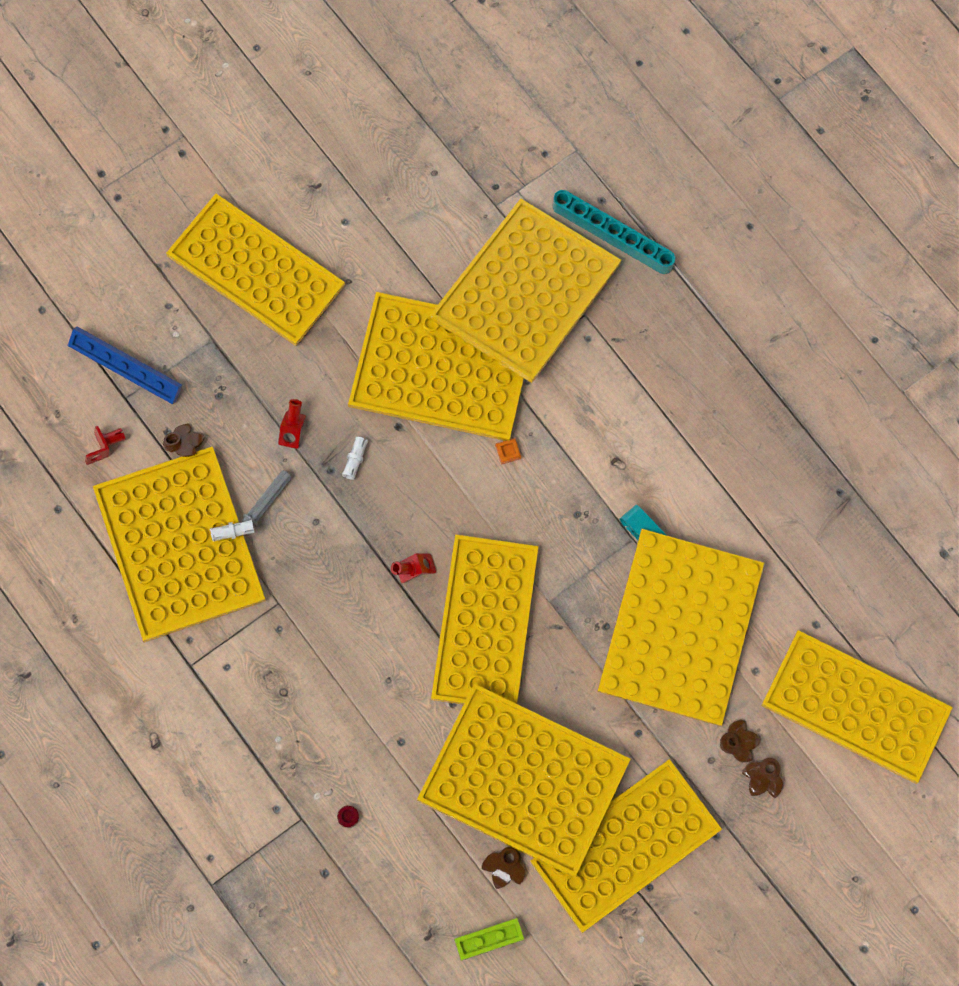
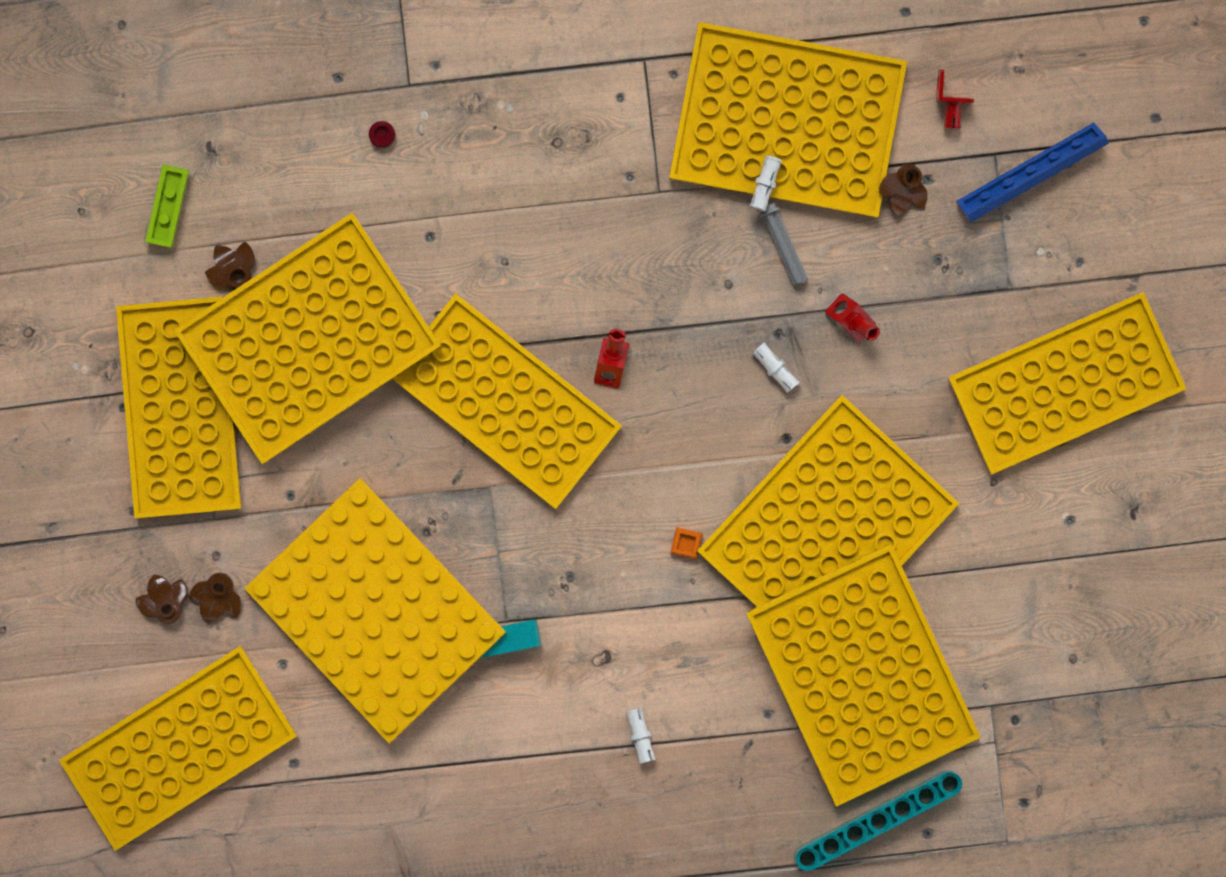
camera: 125 degrees right, 15 degrees up
(653, 408) = (640, 735): none -> white pin

